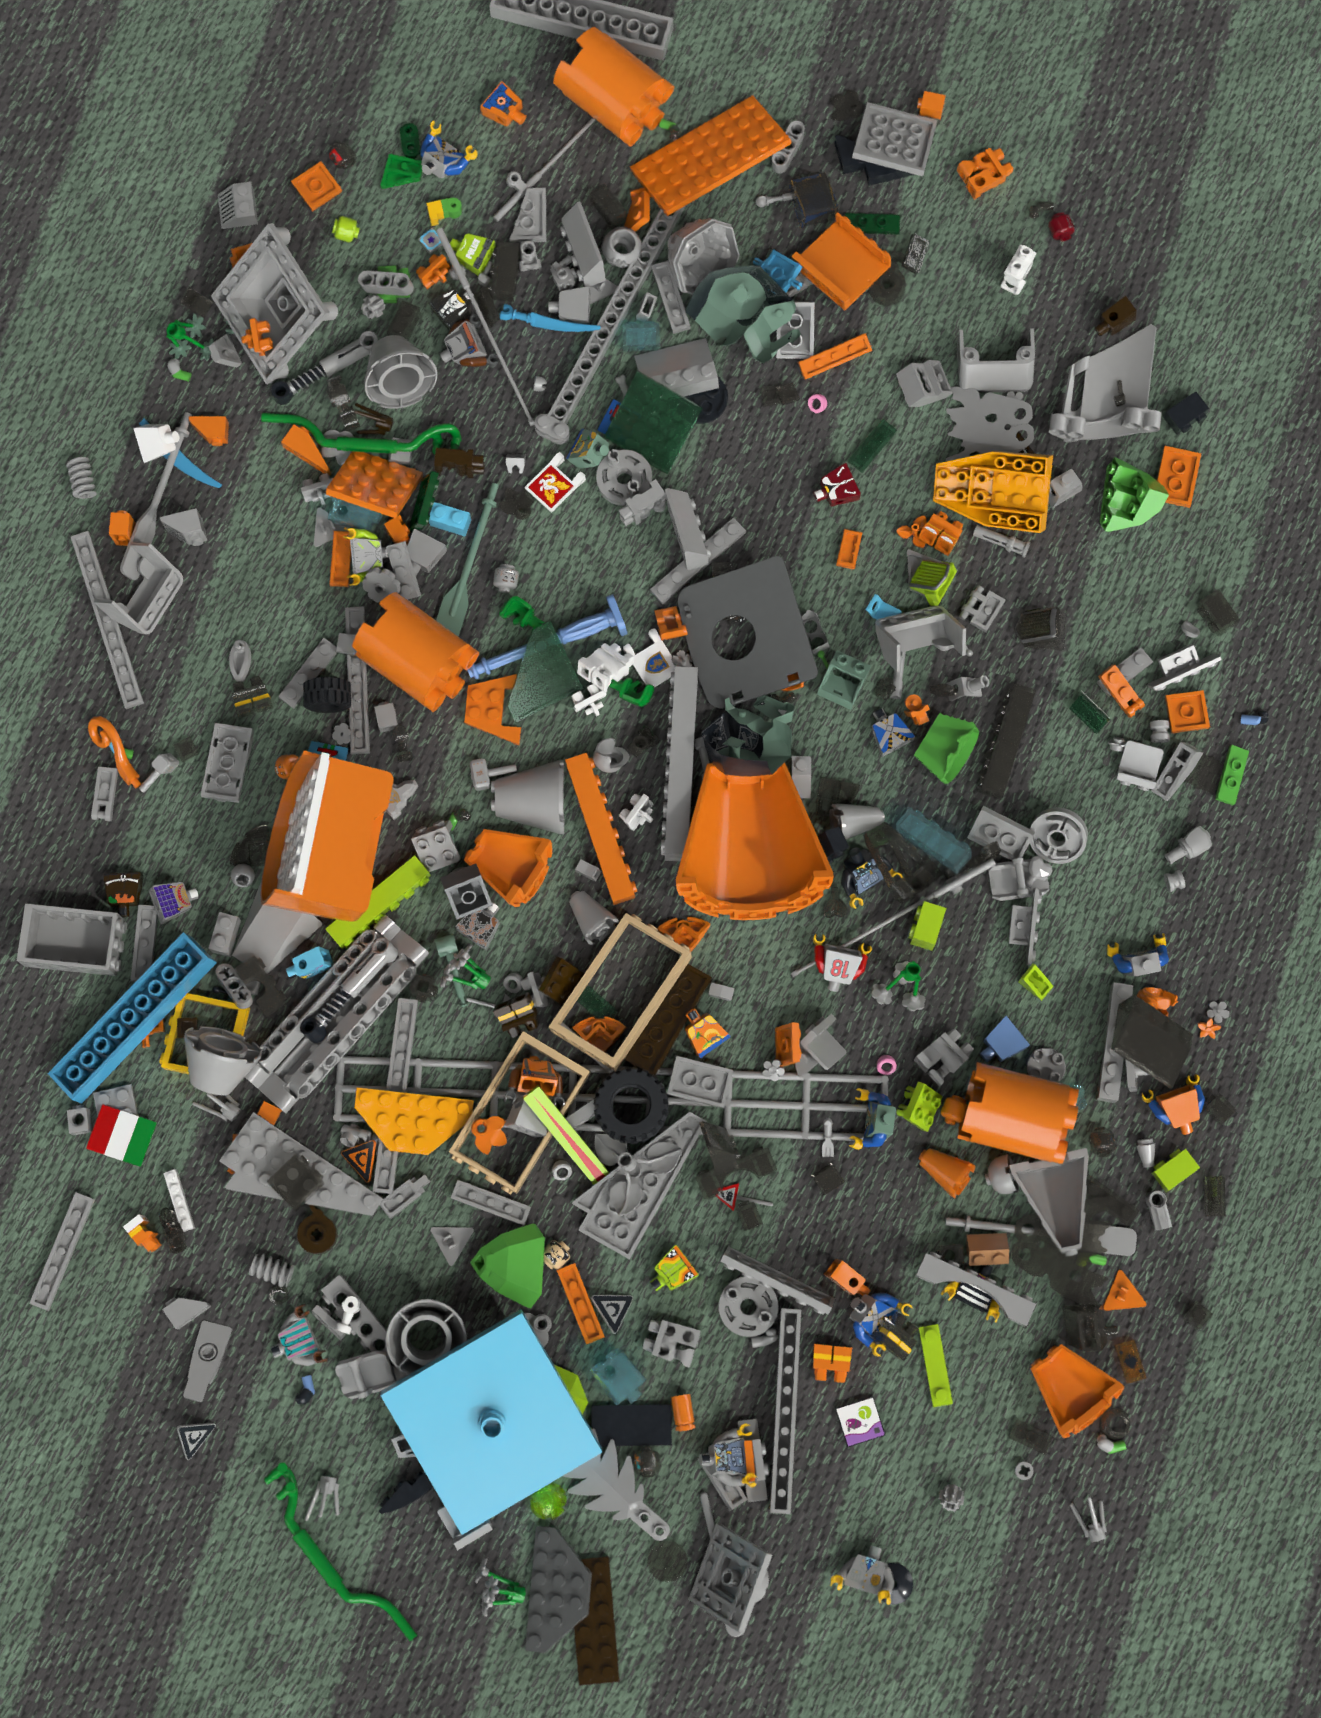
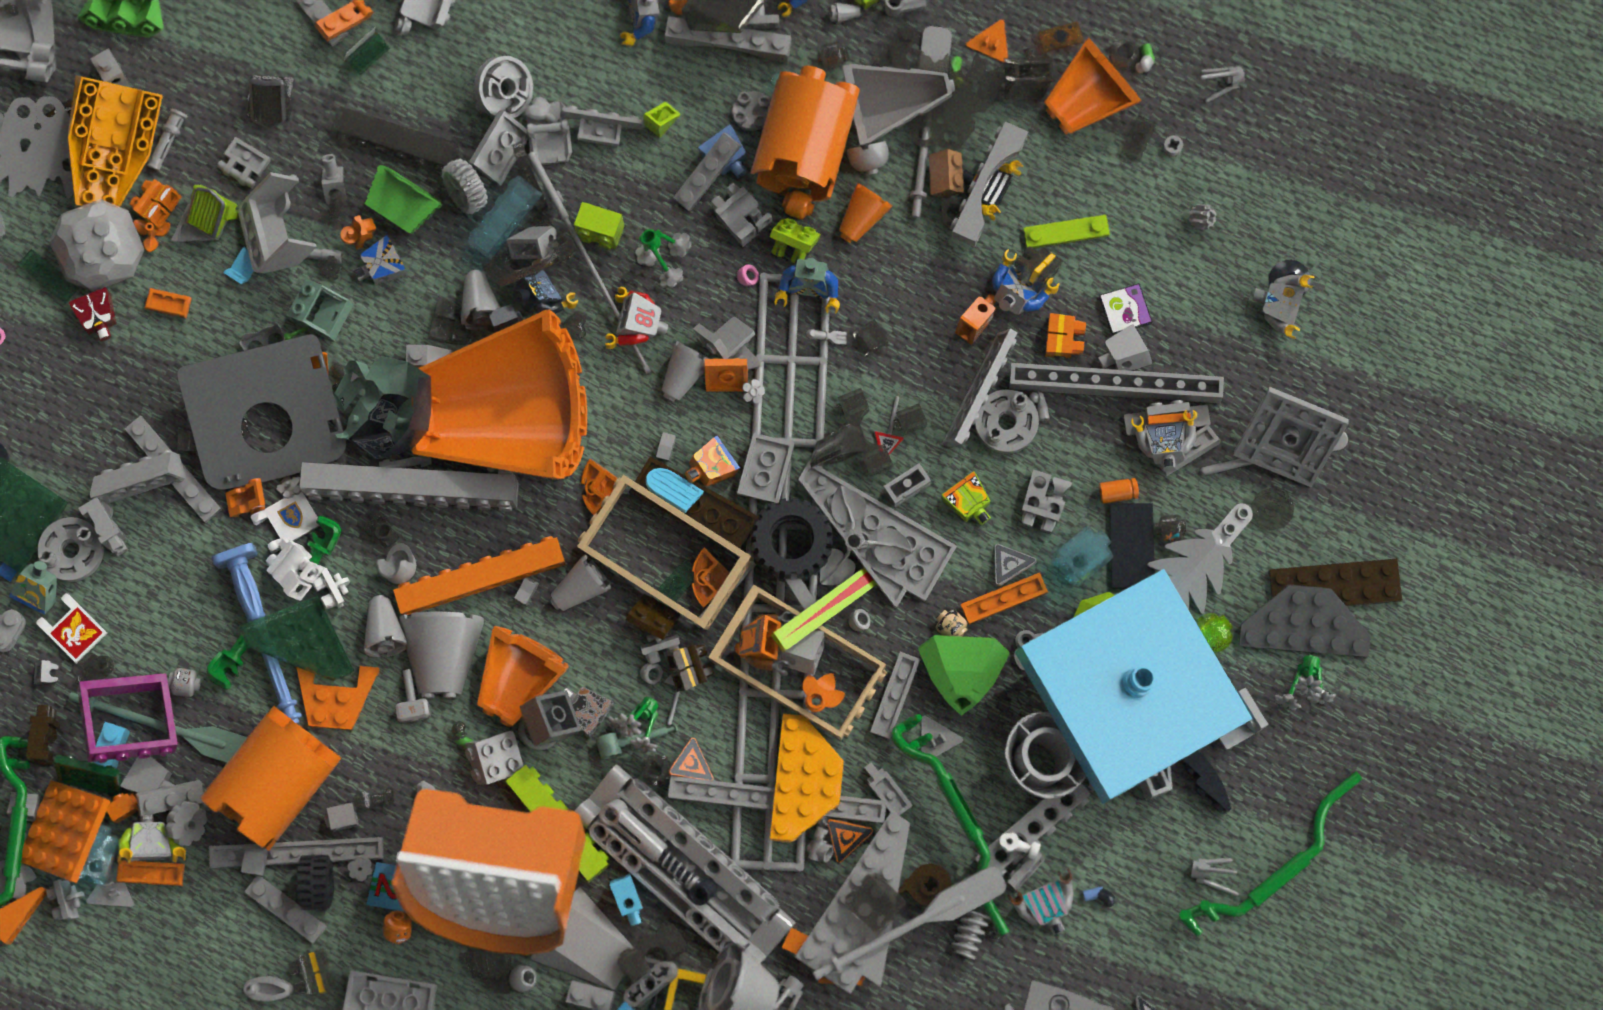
camera: 90 degrees left, 0 degrees up
(294, 1247) = (946, 906): none -> light grey piece
(365, 1374) = (1083, 828): light grey shield -> none
(384, 1257) = (955, 800): none -> green piece
(429, 1019) = (691, 763): none -> piece
(501, 528) = (122, 686): none -> magenta window
(552, 745) = (383, 629): none -> light grey cone
(639, 813) = (454, 531): white hips -> none
(678, 997) = (673, 488): none -> medium azure window
(685, 1212) = (907, 485): none -> light grey brick
(792, 1006) = (683, 371): none -> light grey cone
(816, 1420) = (1126, 351): none -> light grey torso
(900, 485) = (96, 245): none -> light grey rock
(908, 864) = (536, 243): none -> light grey torso
(961, 803) = (464, 186): none -> light grey gear
(983, 1024) = (707, 171): none -> light grey plate

